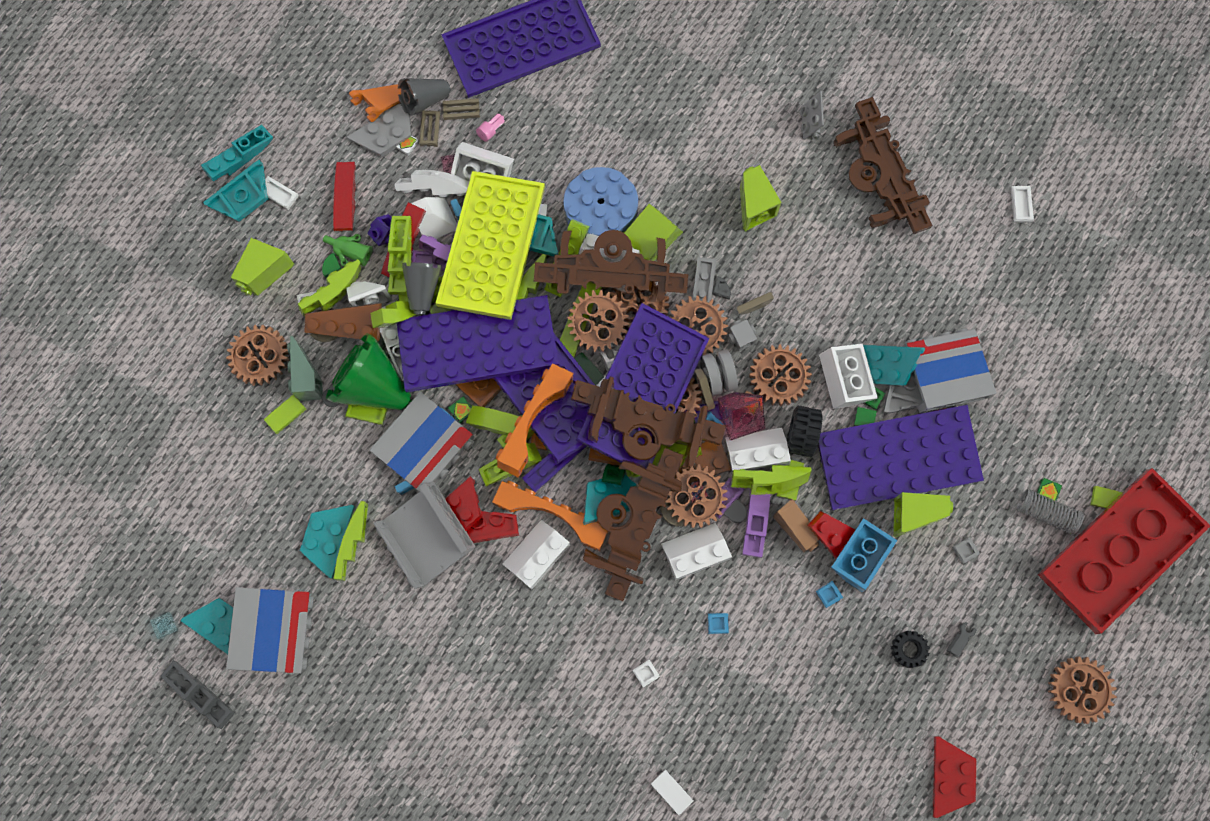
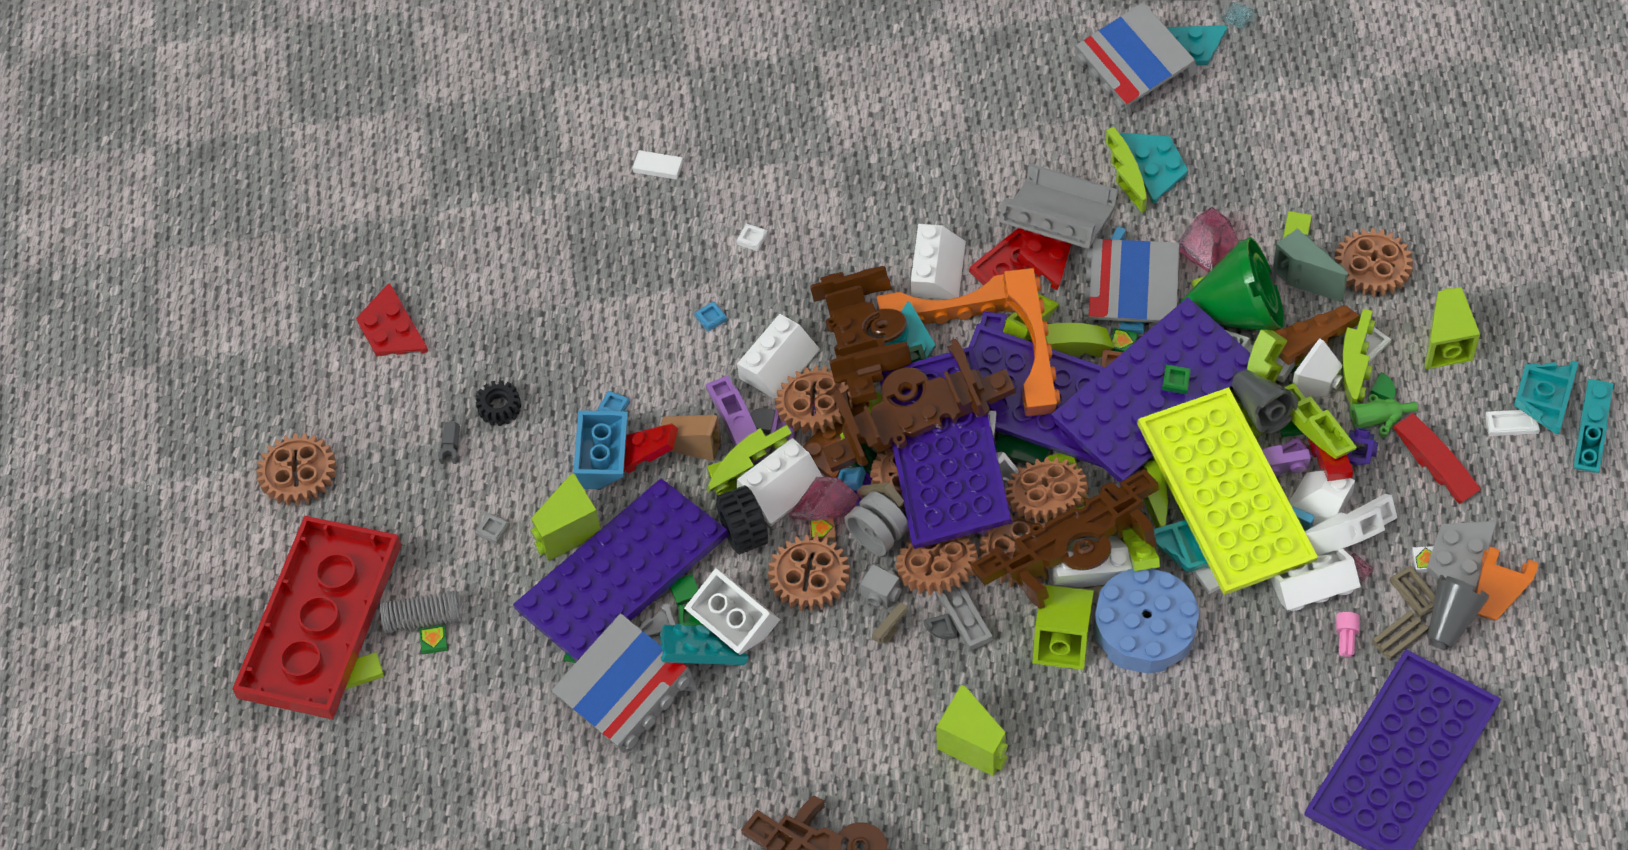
camera: 150 degrees right, 20 degrees down
(347, 442) = (1208, 239): none -> clear pink slope
(461, 333) = (1176, 379): none -> green tile

